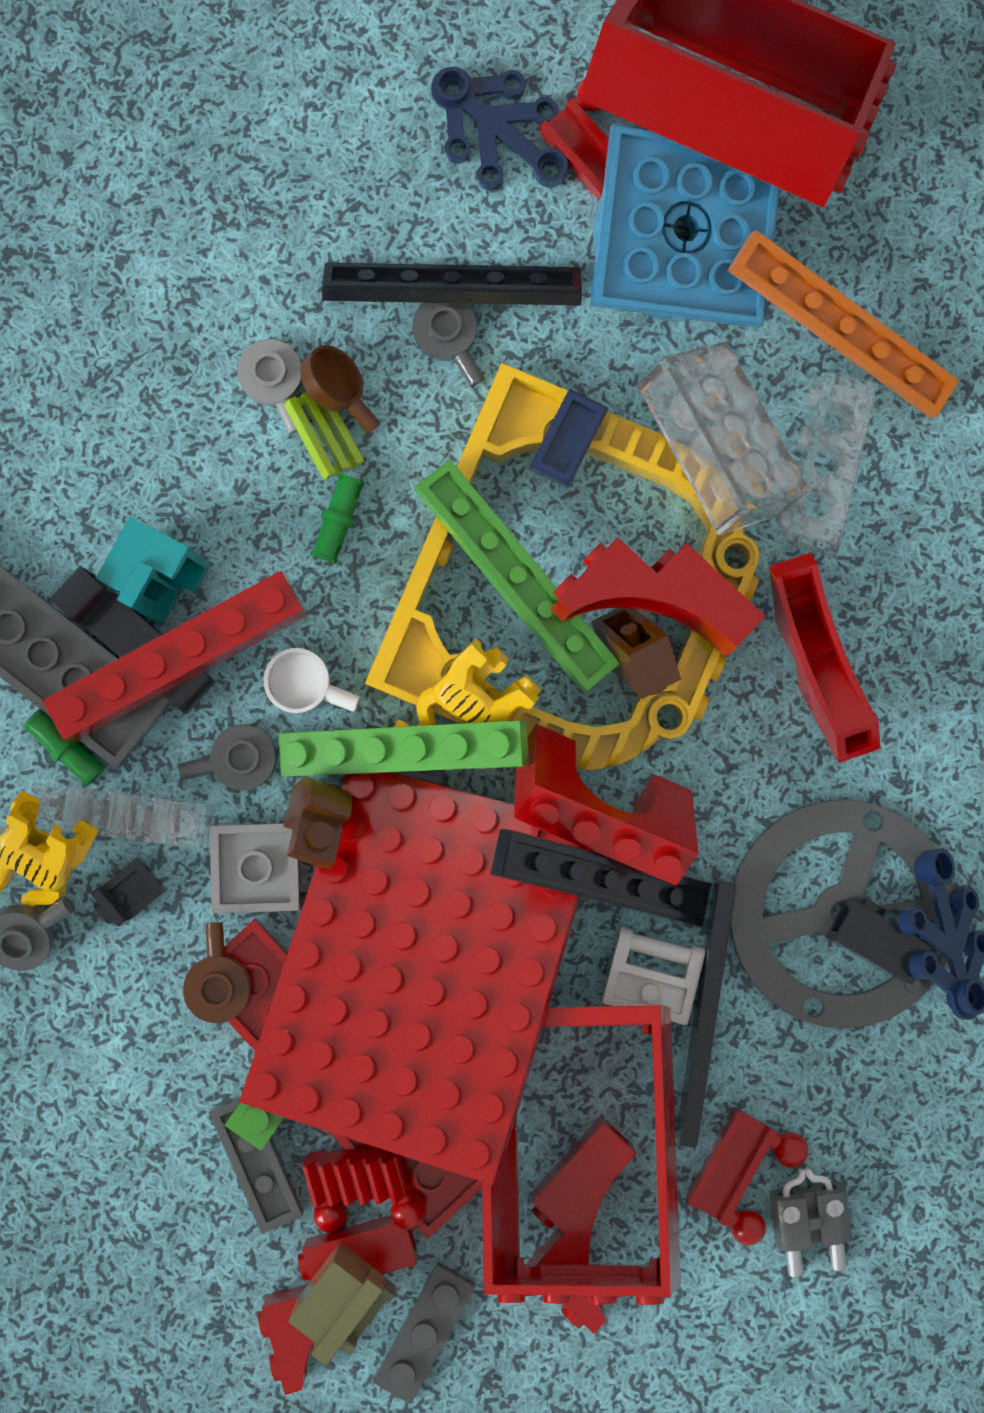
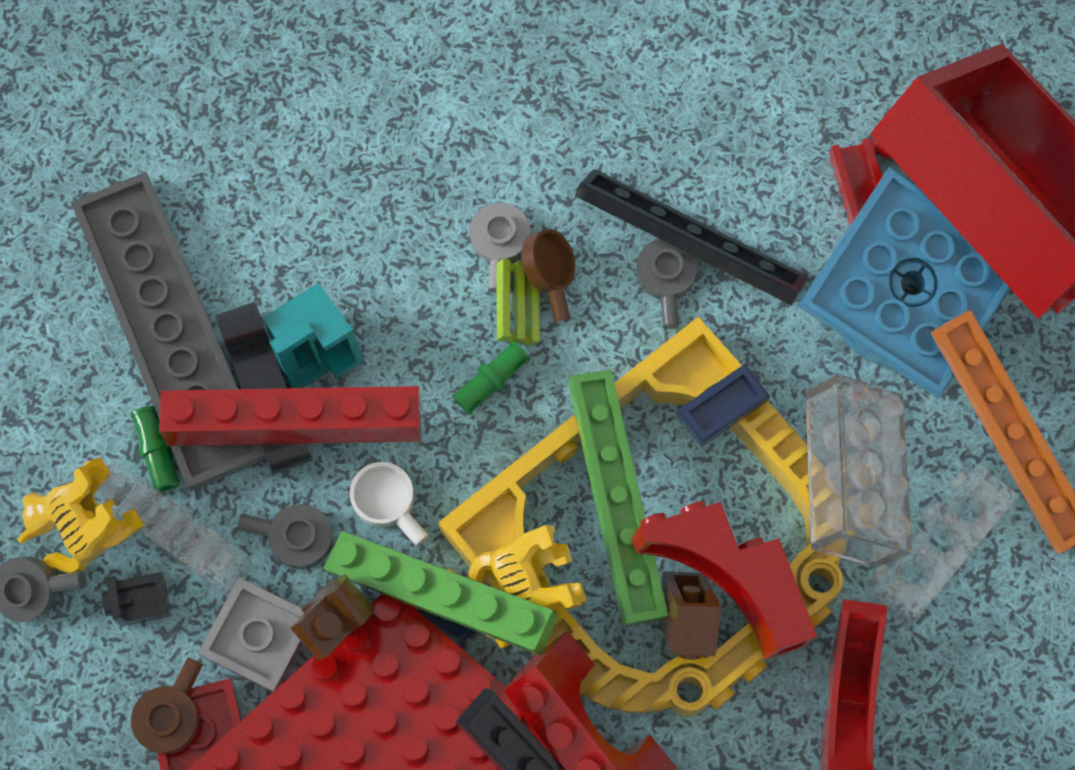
camera: 30 degrees right, 15 degrees down
(494, 122) = (795, 127): dark blue plant -> none

